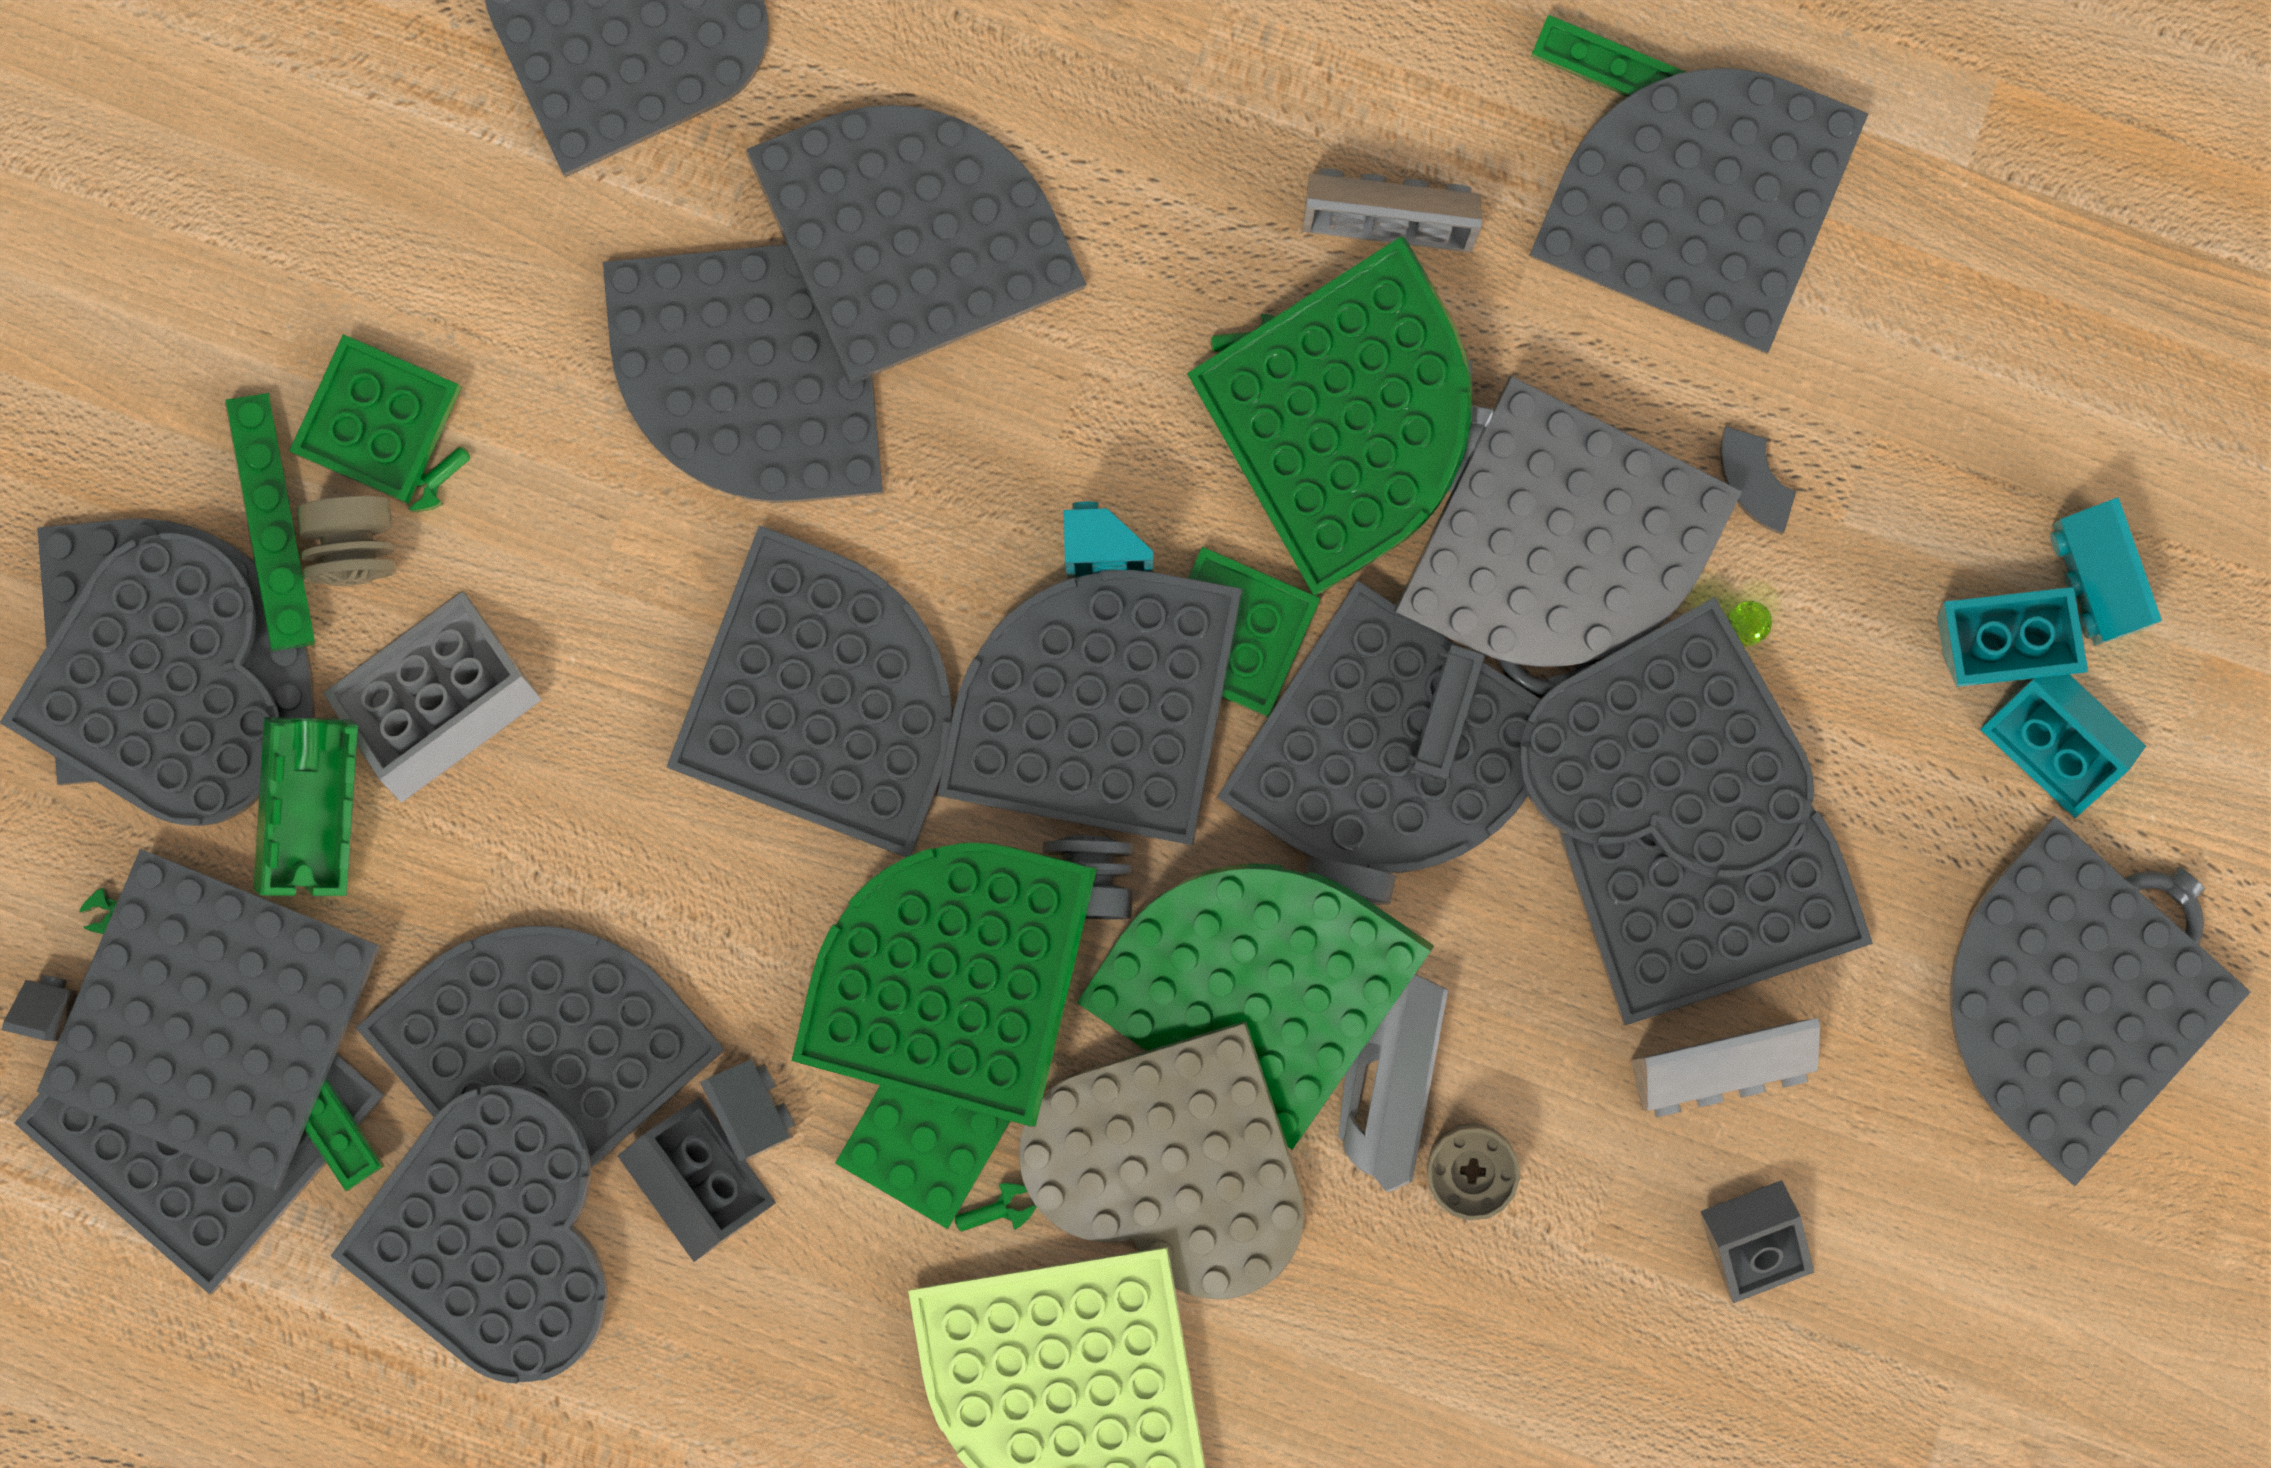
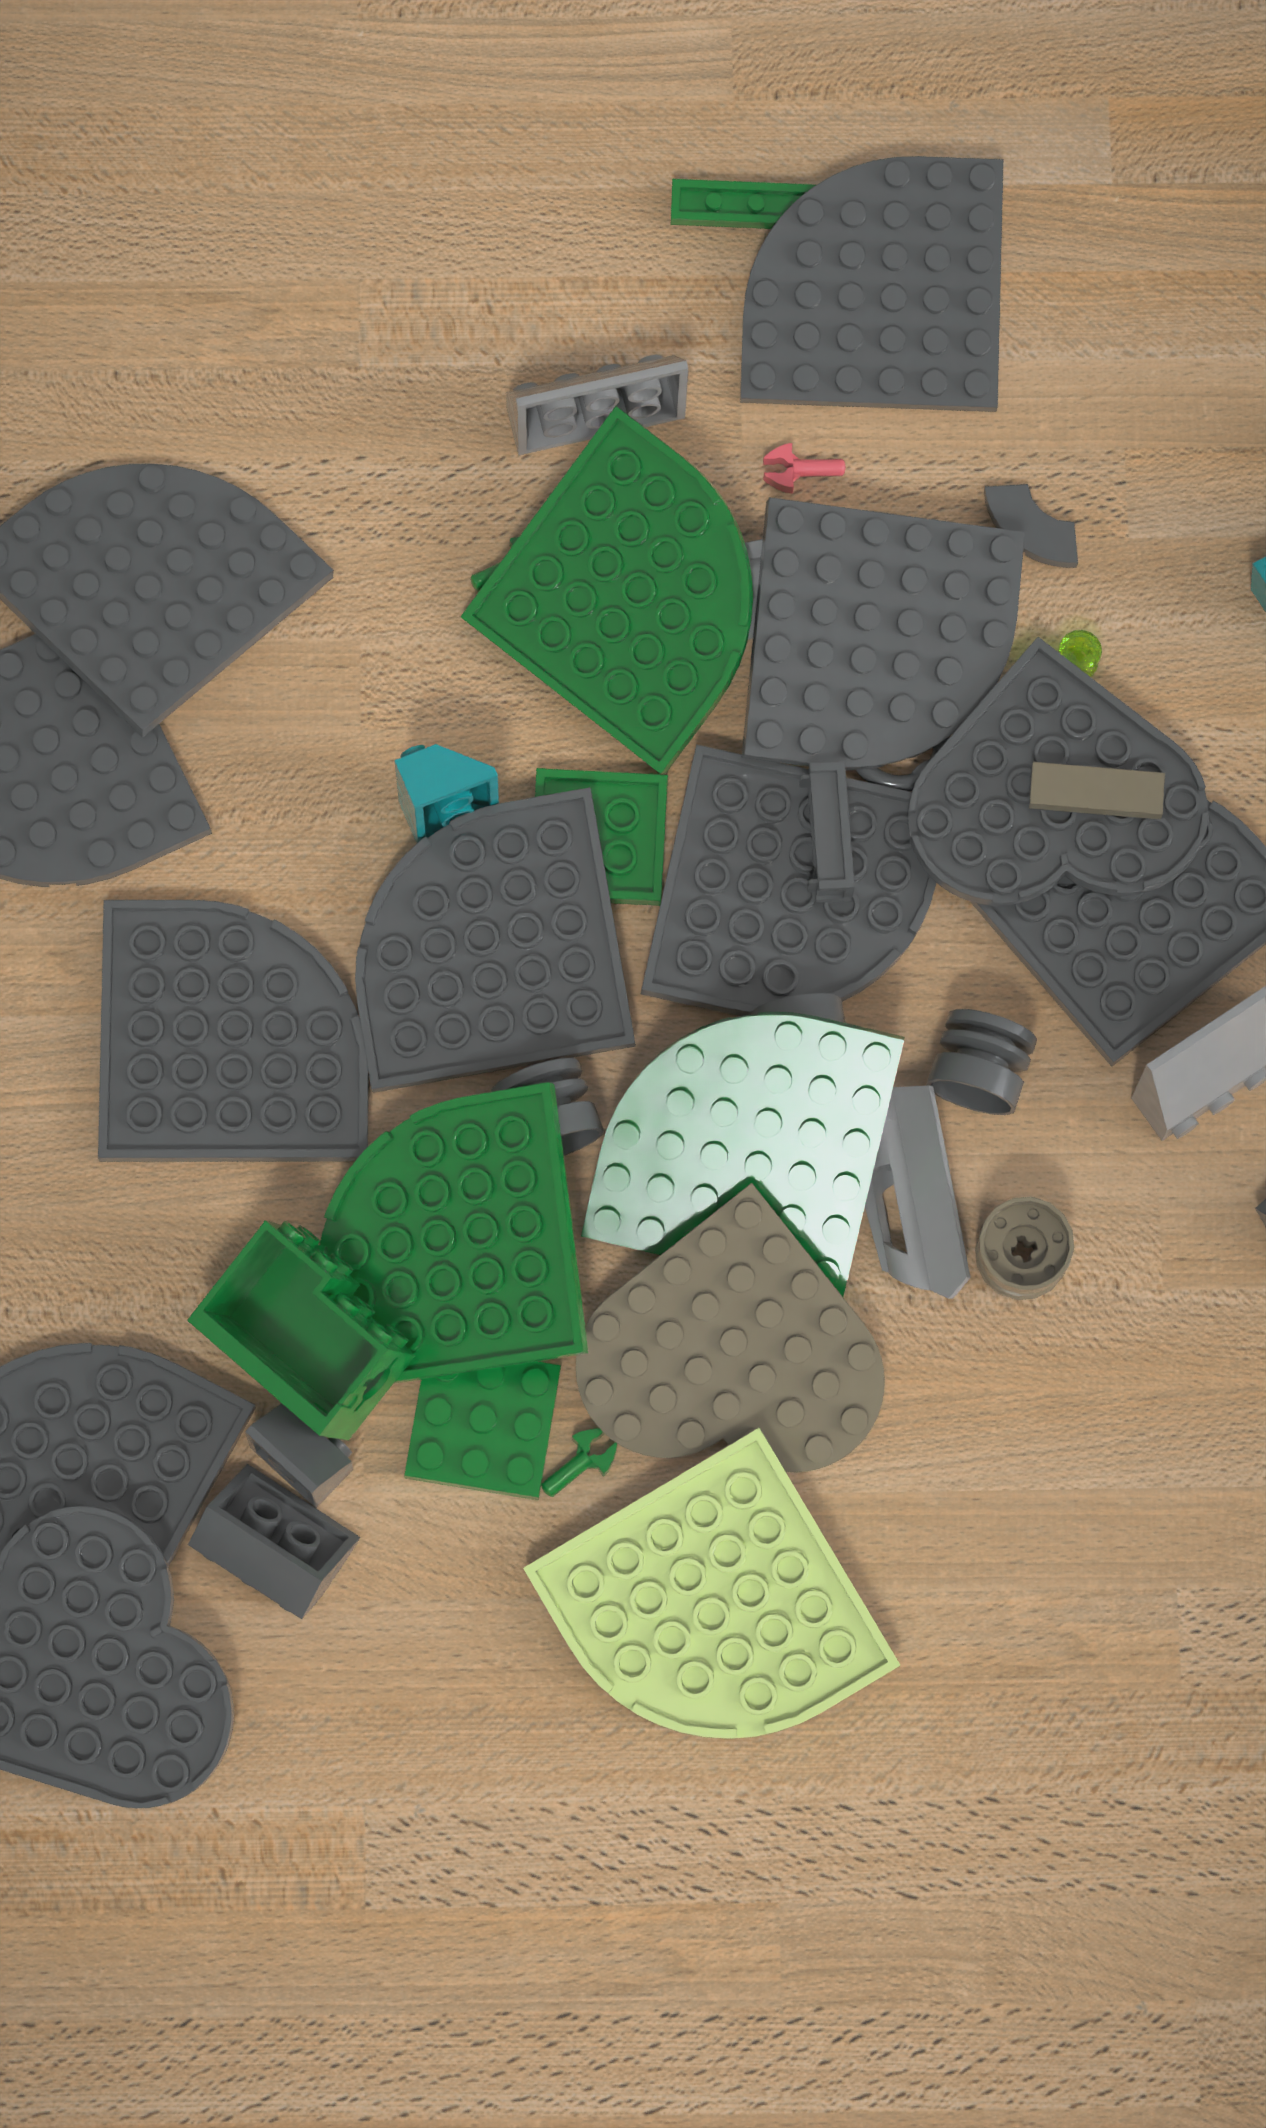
camera: 25 degrees left, 10 degrees down
(786, 1005) = (299, 1334): none -> green piece
(1503, 982) = (982, 1062): none -> dark grey wheel
(1559, 342) = (798, 468): none -> coral bar
(1709, 768) = (1096, 790): none -> dark tan tile

